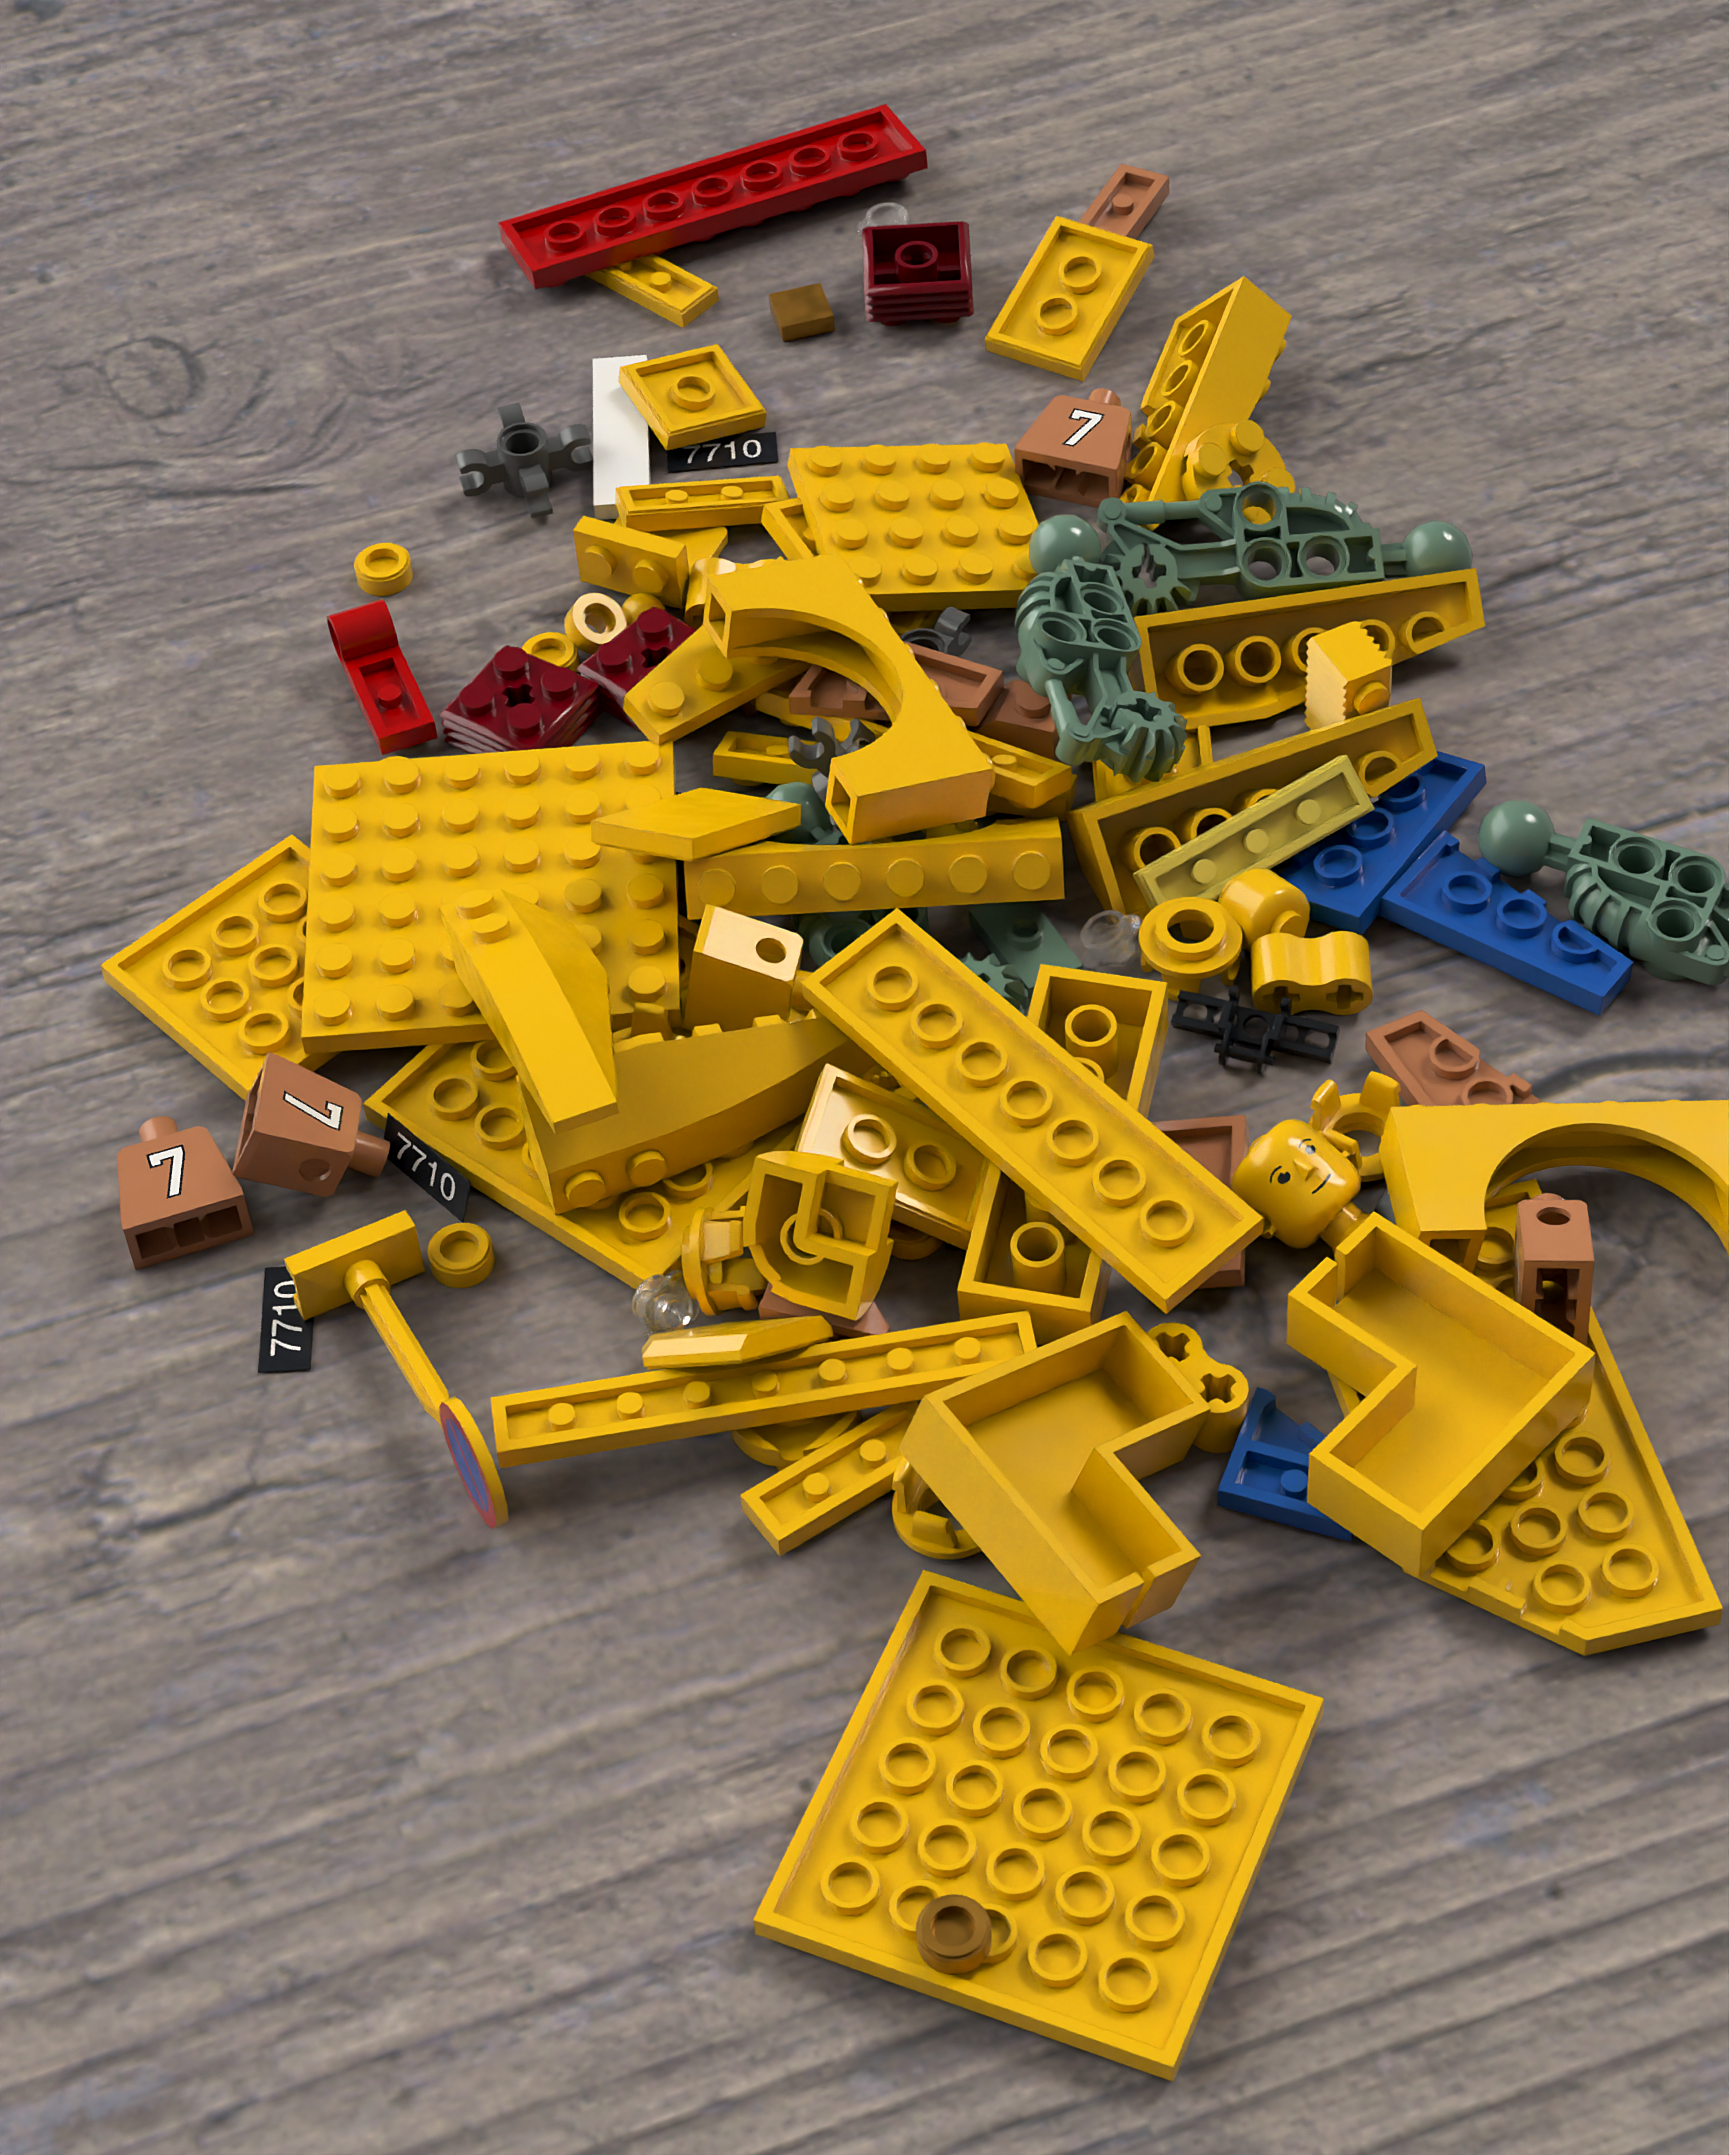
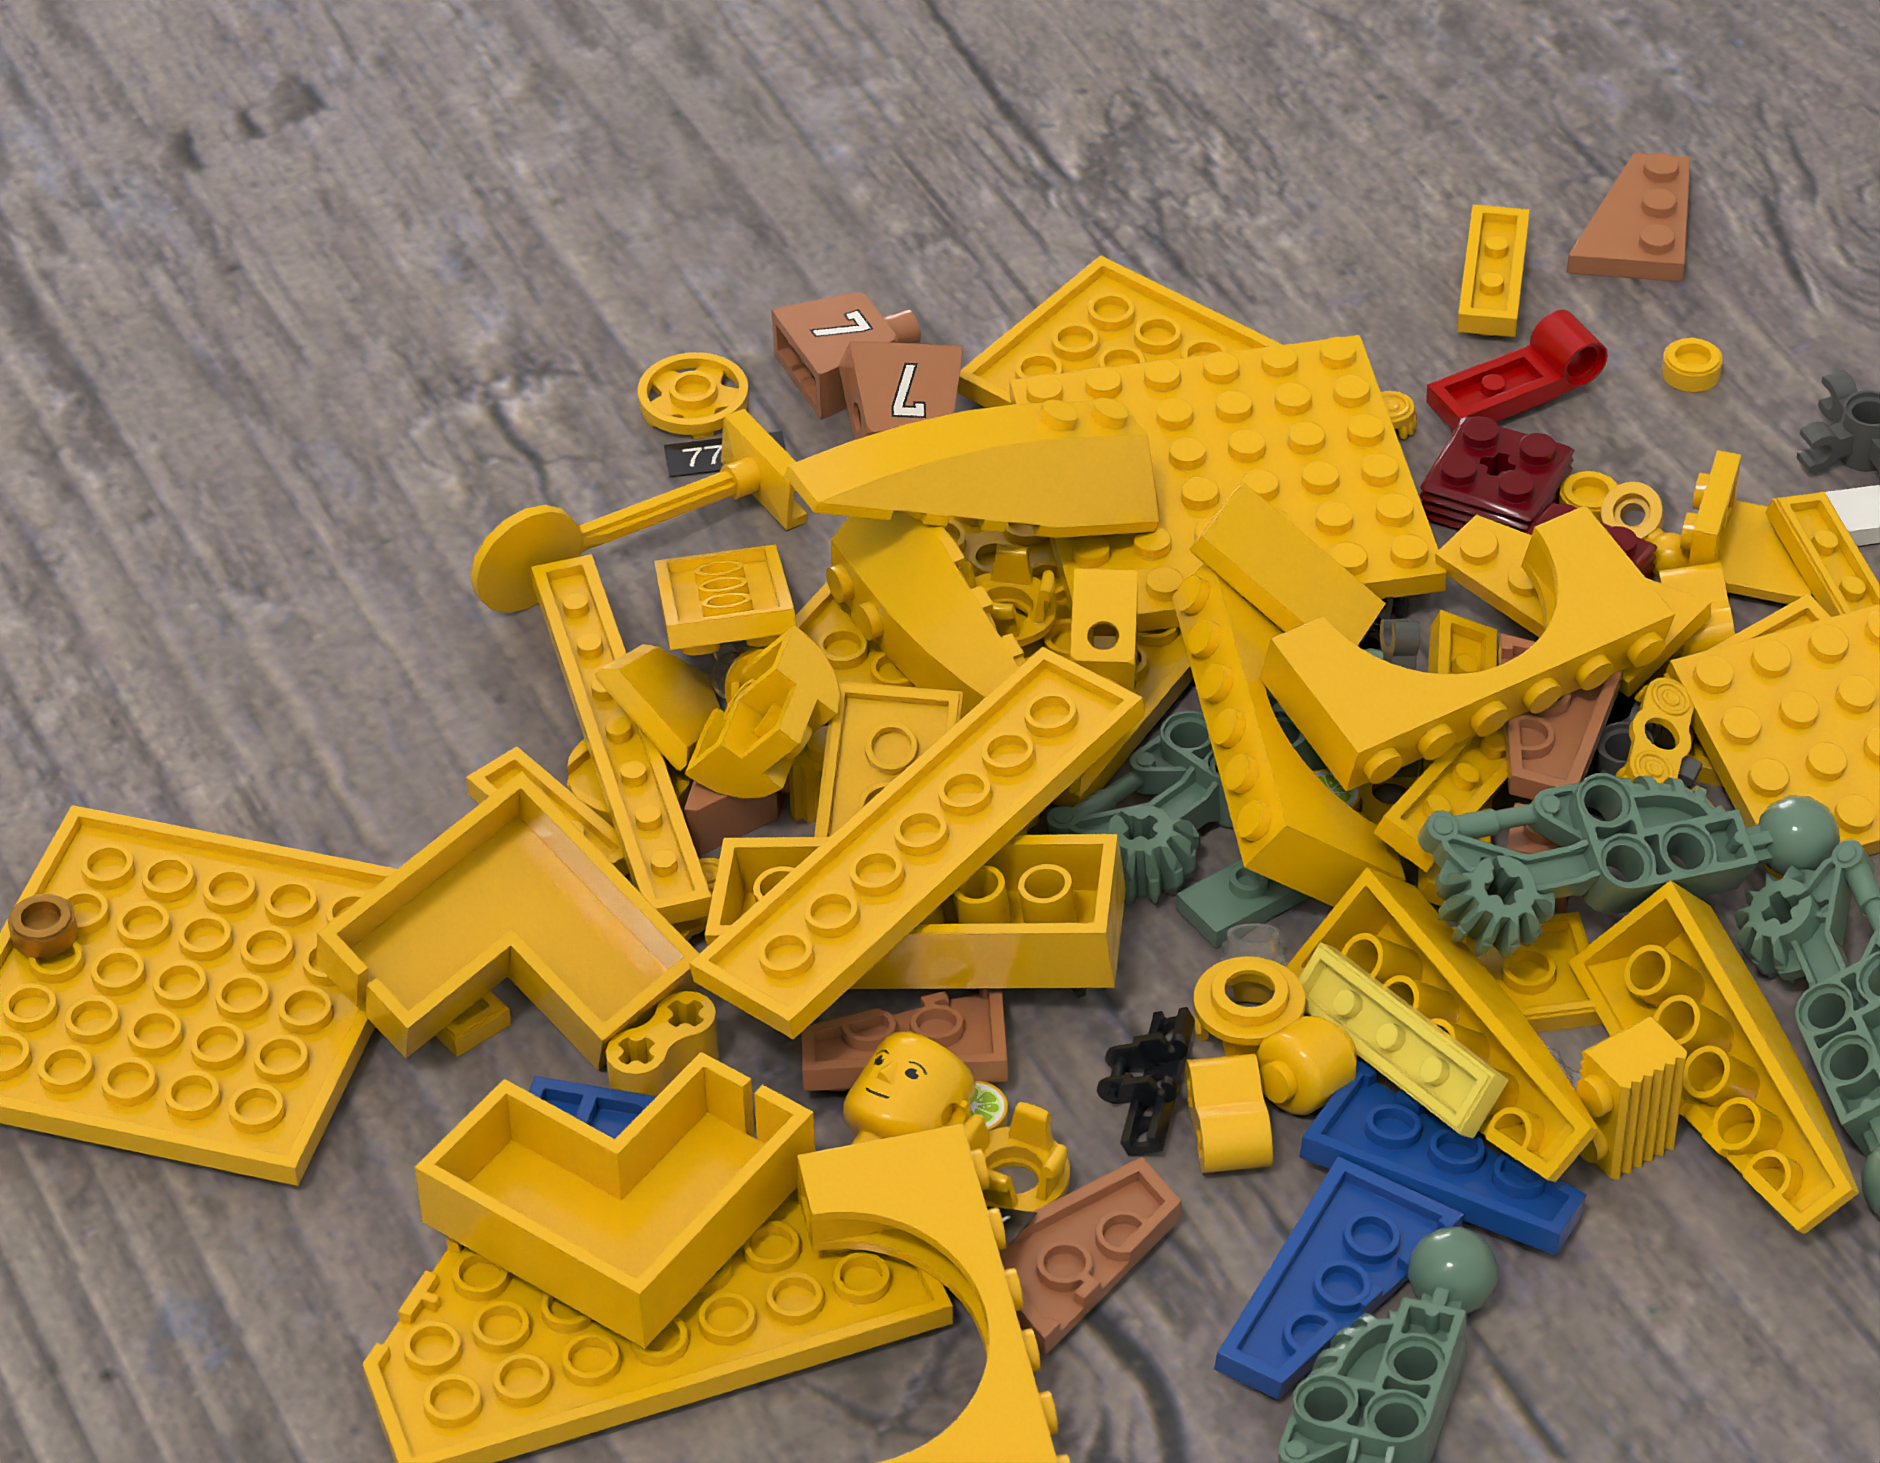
camera: 80 degrees right, 5 degrees down
(170, 575) = (1639, 223): none -> nougat wing
(192, 1337) = (695, 399): none -> yellow wheel
(213, 681) = (1493, 271): none -> yellow plate
(461, 1255) = (802, 545): yellow tile -> none
(587, 1283) = (724, 599): none -> yellow plate
(970, 634) = (1667, 704): none -> yellow piece
(1557, 1247) = (783, 1284): nougat torso -> none

